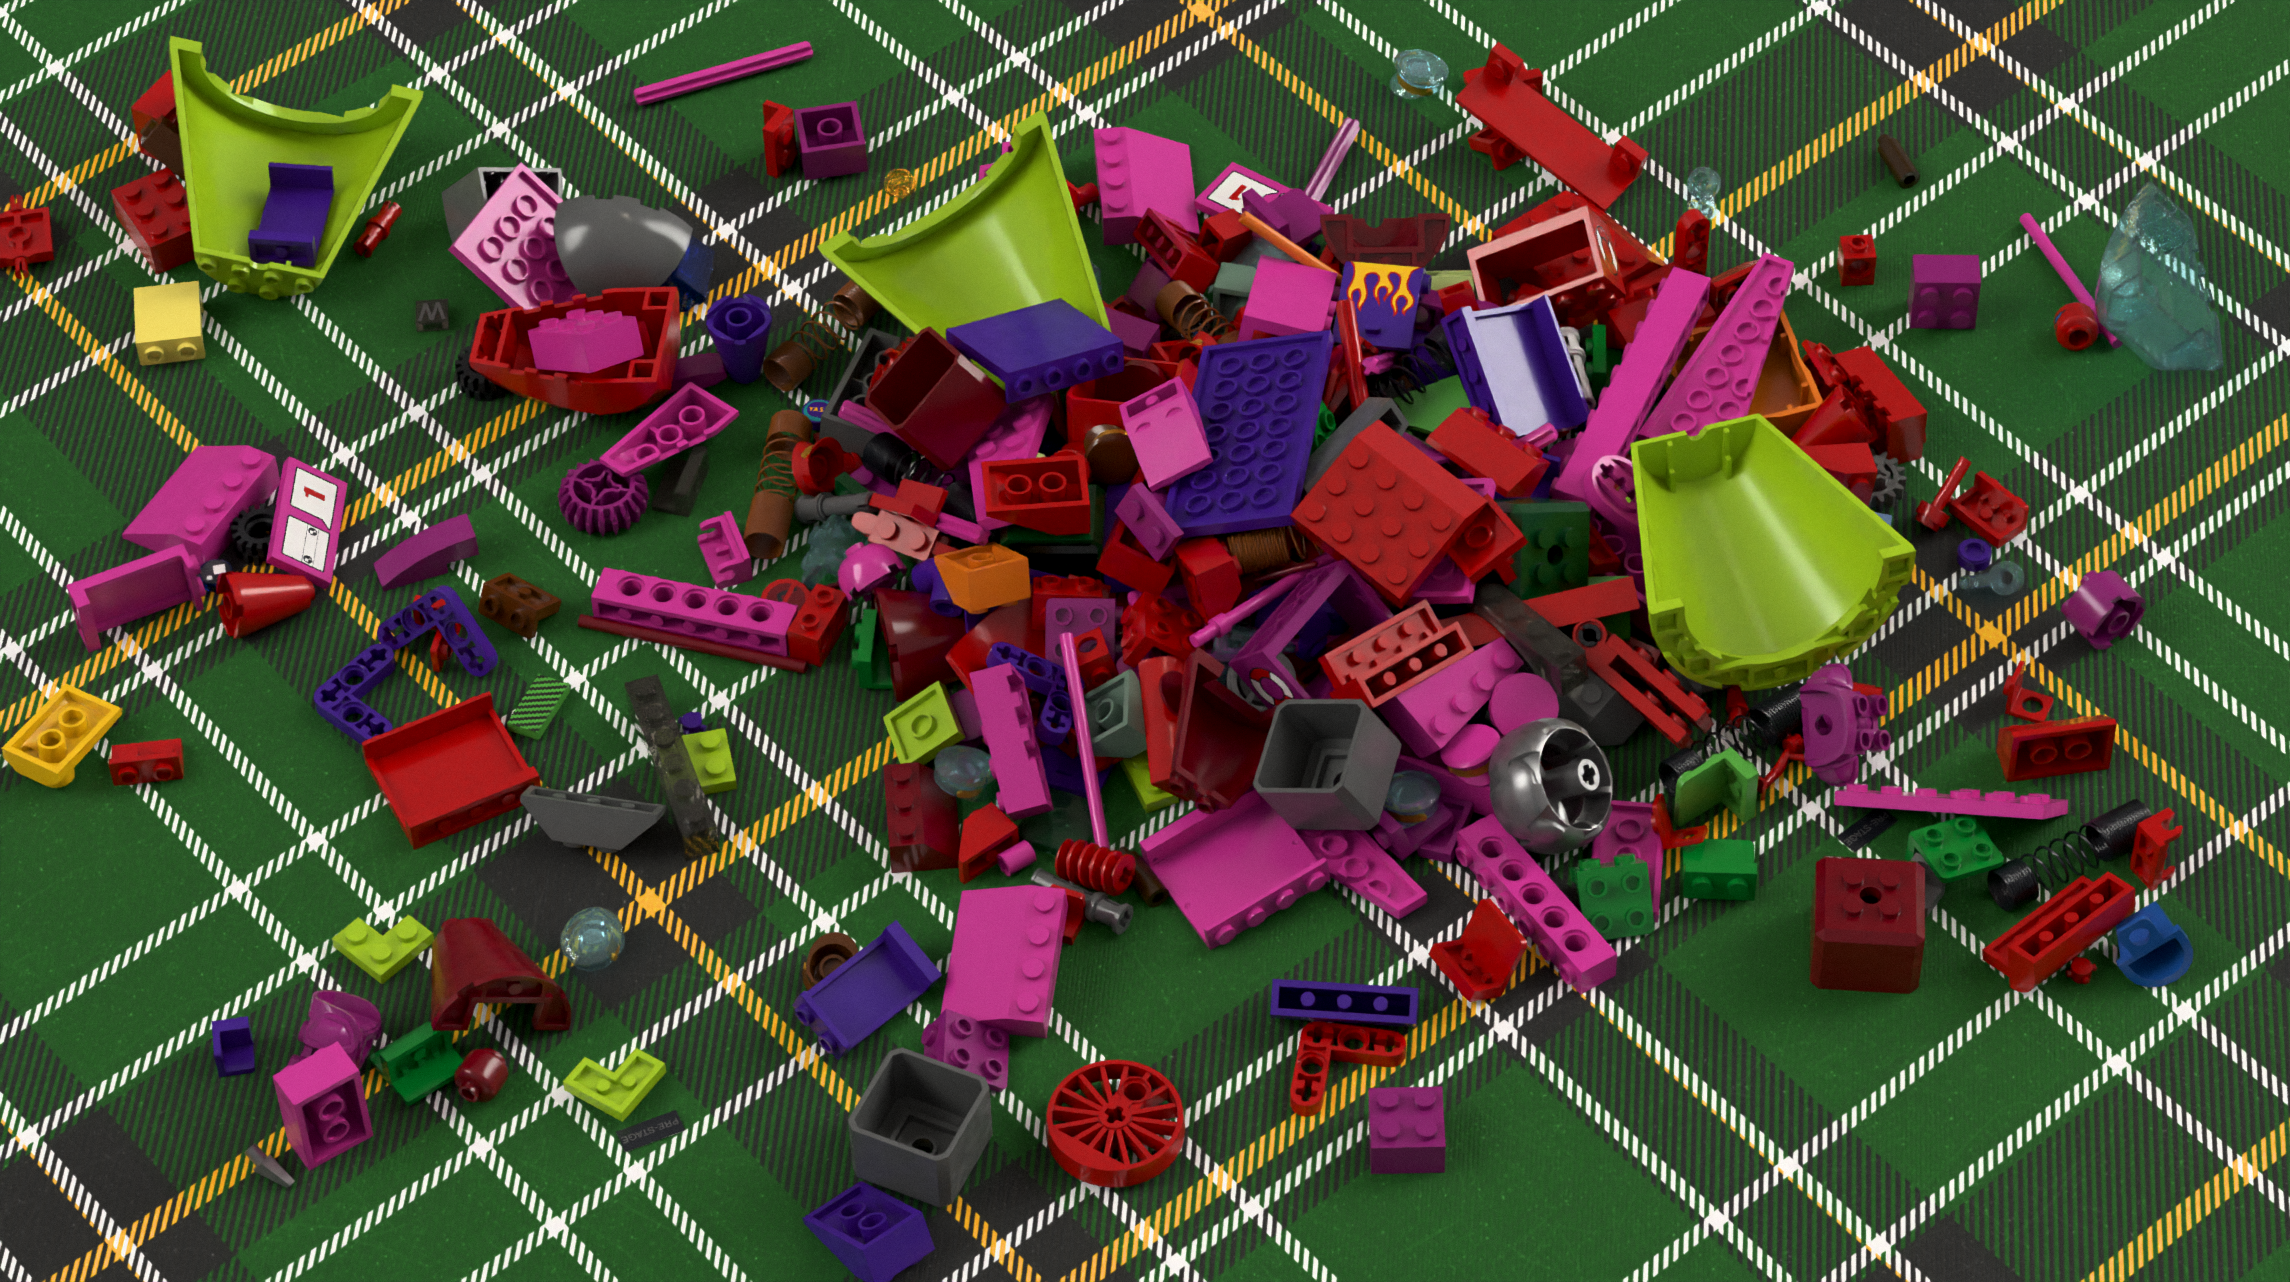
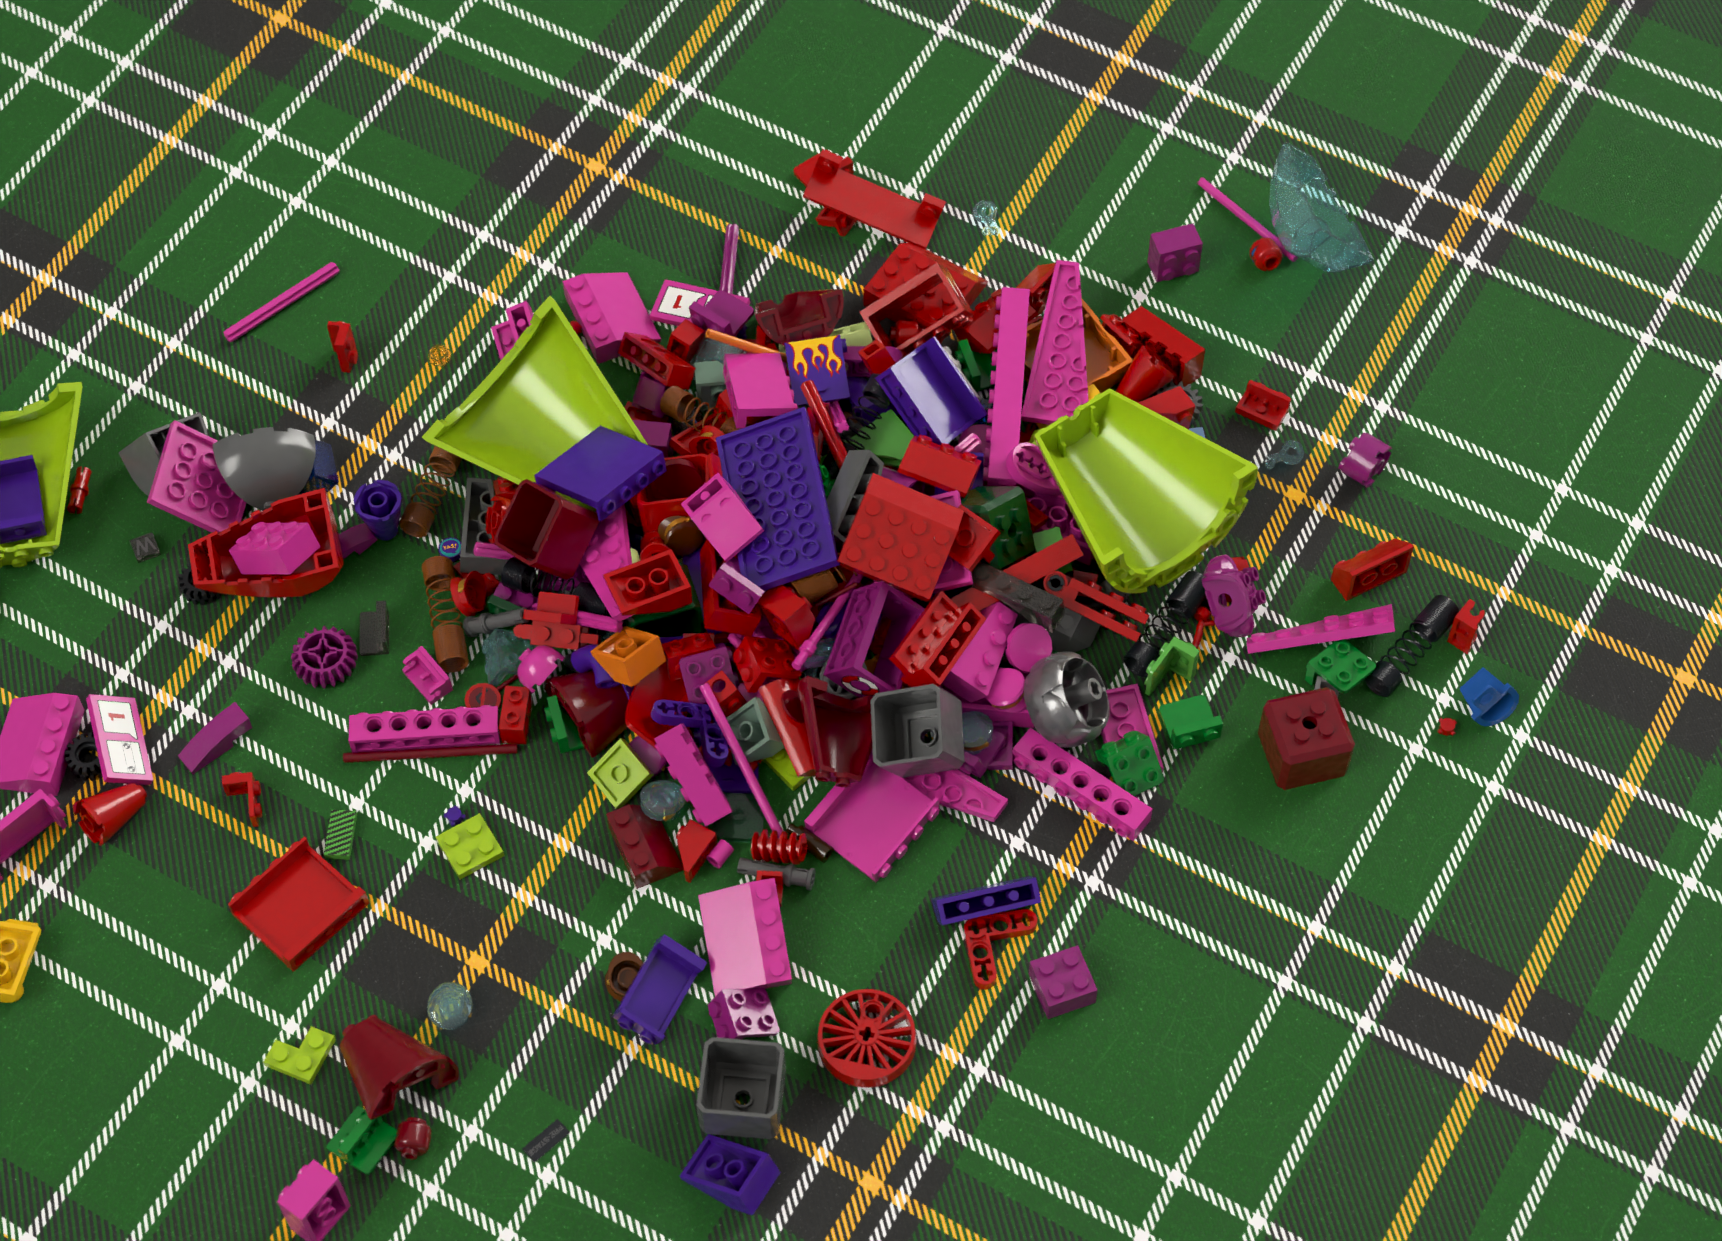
camera: 20 degrees left, 10 degrees up
(147, 762) = (73, 961): red bracket -> none
(211, 571) = (66, 796): tile -> none
(233, 1046) = (225, 1170): dark purple panel -> none
(342, 1019) = (301, 1139): magenta piece -> none
(349, 696) = (200, 869): dark purple beam -> none
(444, 618) = (251, 790): dark purple beam -> none
(516, 604) = (294, 758): reddish brown bracket -> none
(588, 818) = (415, 912): dark grey wedge -> none
(616, 1091) = (510, 1119): lime plate -> none
(674, 768) = (470, 872): clear smoke arch -> none
(675, 426) = (358, 592): dark pink wedge -> none
(830, 140) = (380, 336): magenta brick -> none
(1418, 74) = (763, 178): clear light blue piece -> none
(1483, 956) = (1063, 834): red bracket -> none
(1662, 824) = (1150, 706): red bracket -> none
(1684, 258) = (999, 274): red beam -> none
(1735, 705) = (1155, 598): red bar -> none
(1856, 260) = (1107, 243): red brick -> none
(1866, 829) = (1270, 663): black sticker -> none
(1898, 161) = (1104, 161): dark brown cylinder -> none
(1931, 514) = (1228, 419): red piece -> none
(1974, 555) = (1263, 439): dark purple tile -> none
(2019, 695) = (1330, 534): red bracket -> none
(2060, 930) = (1426, 704): red brick -> none

